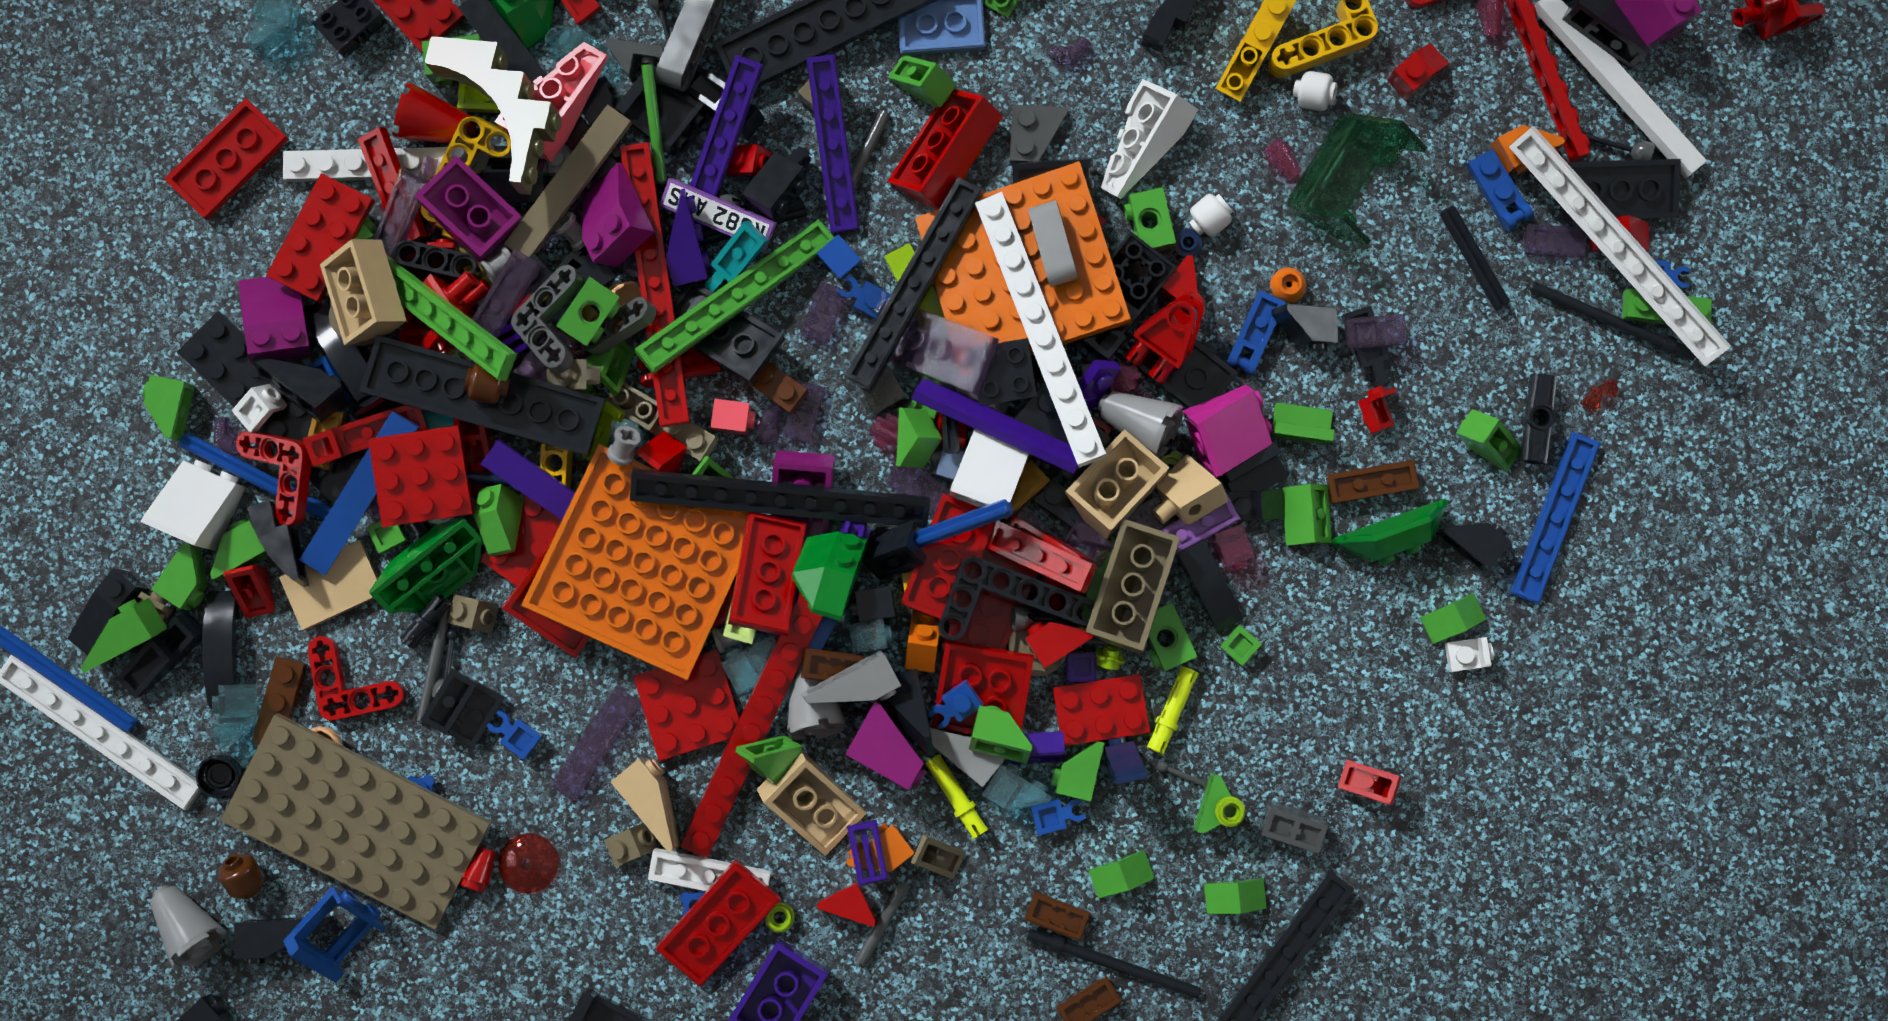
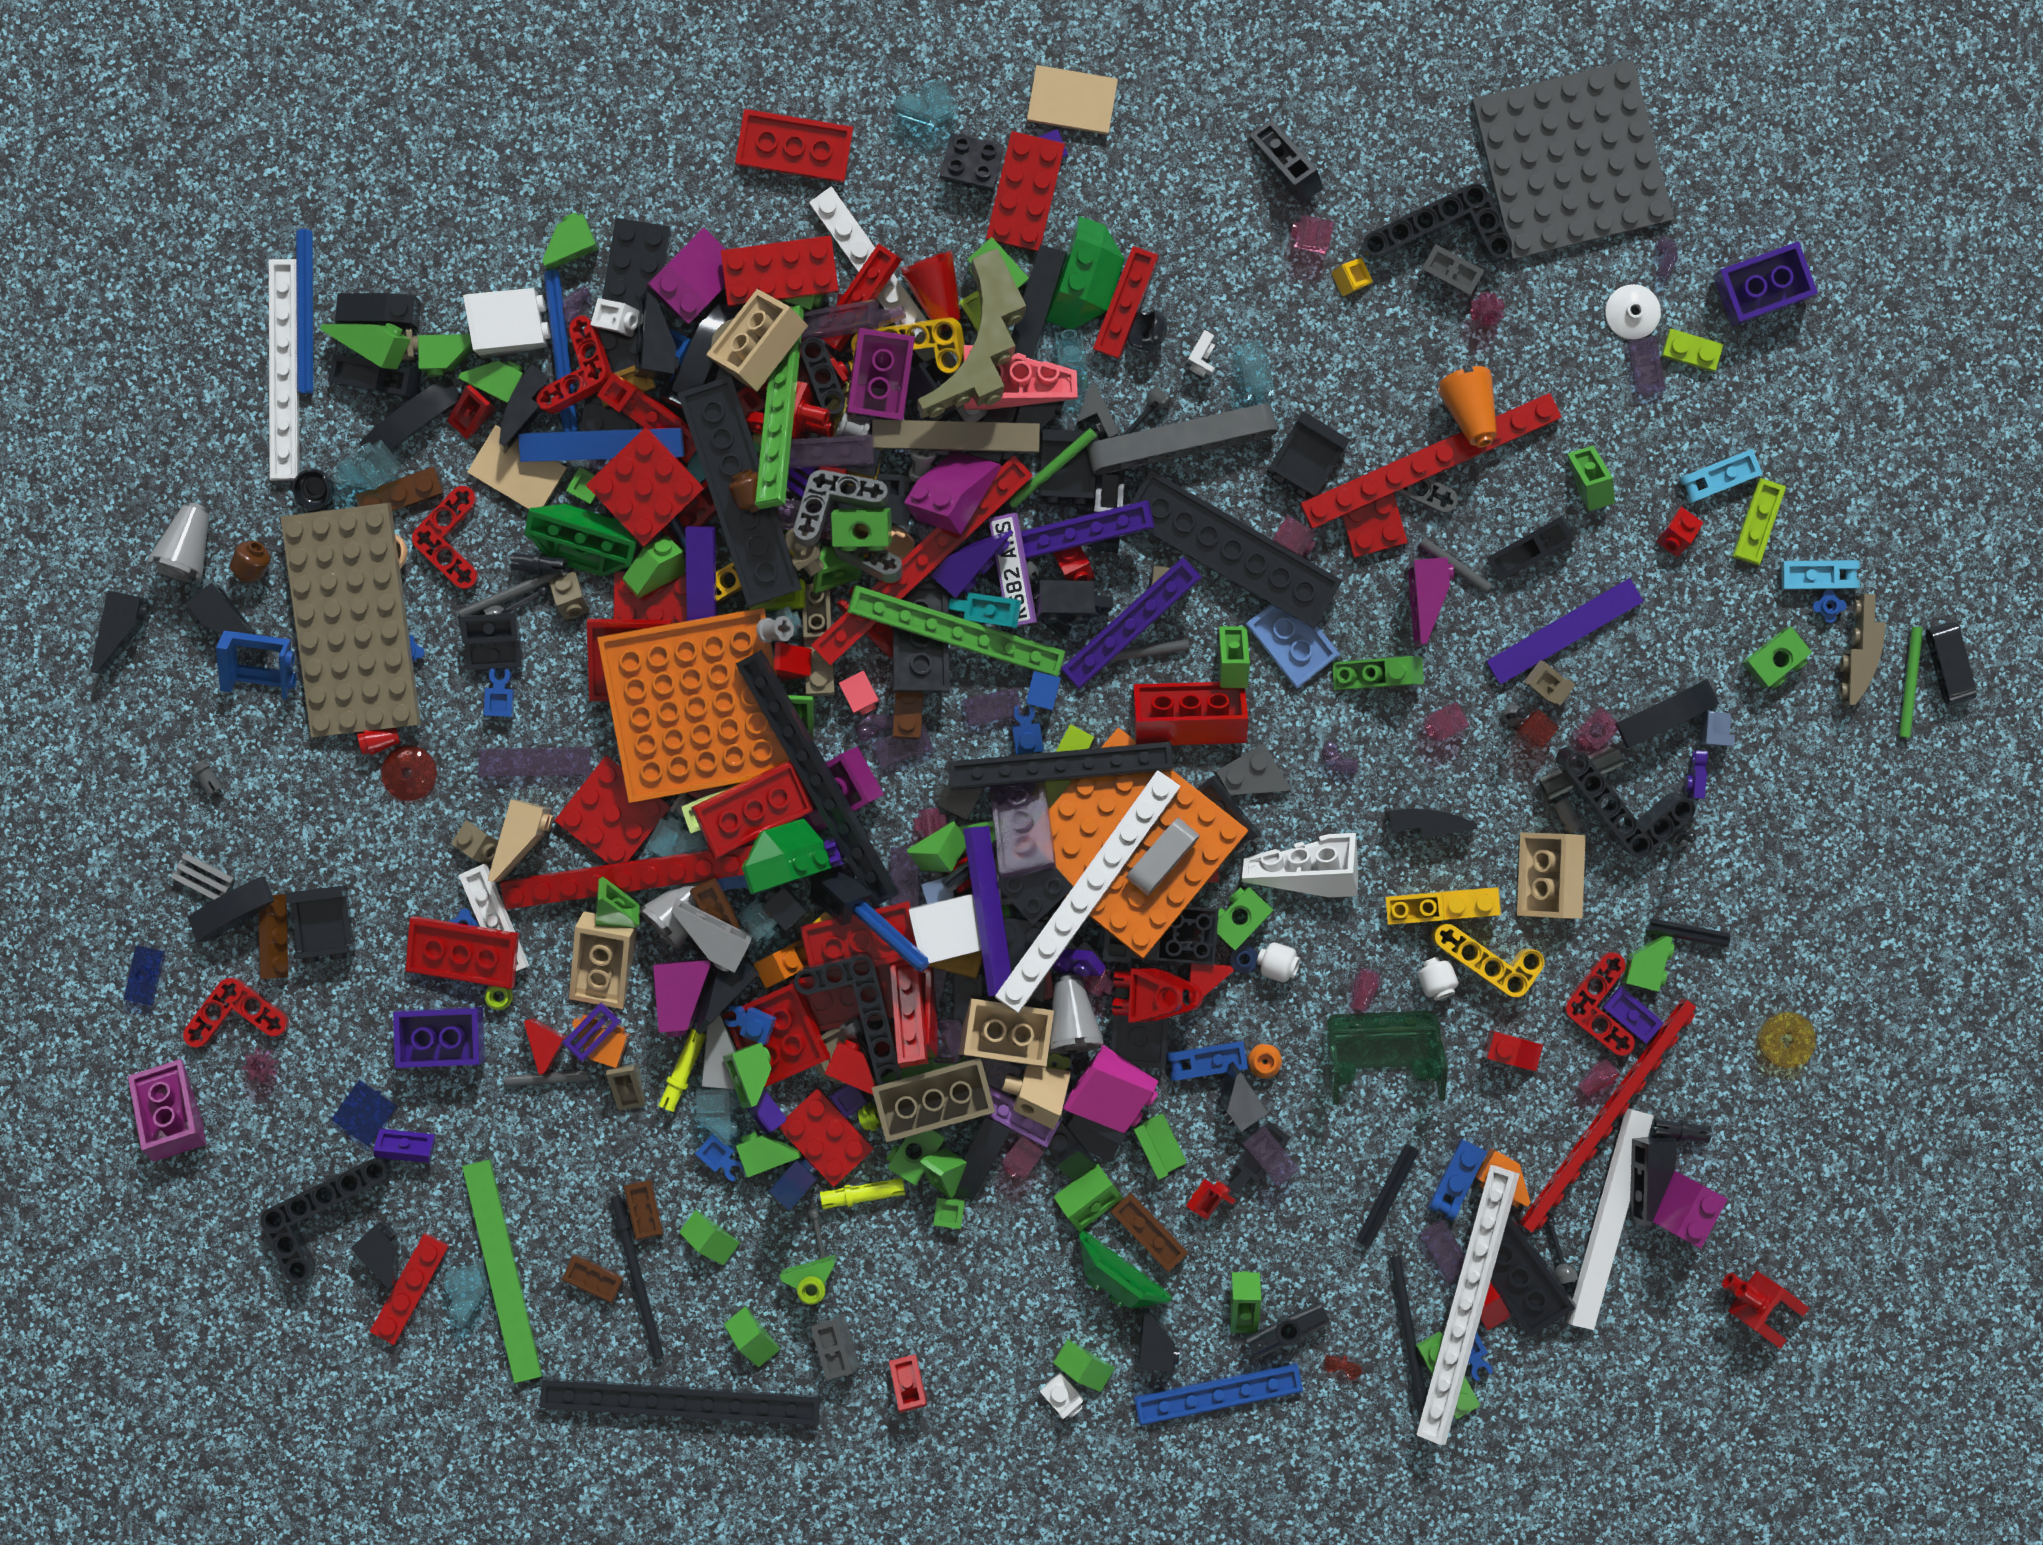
camera: 50 degrees right, 5 degrees up
(1201, 623) = (944, 1171): none -> bright green slope

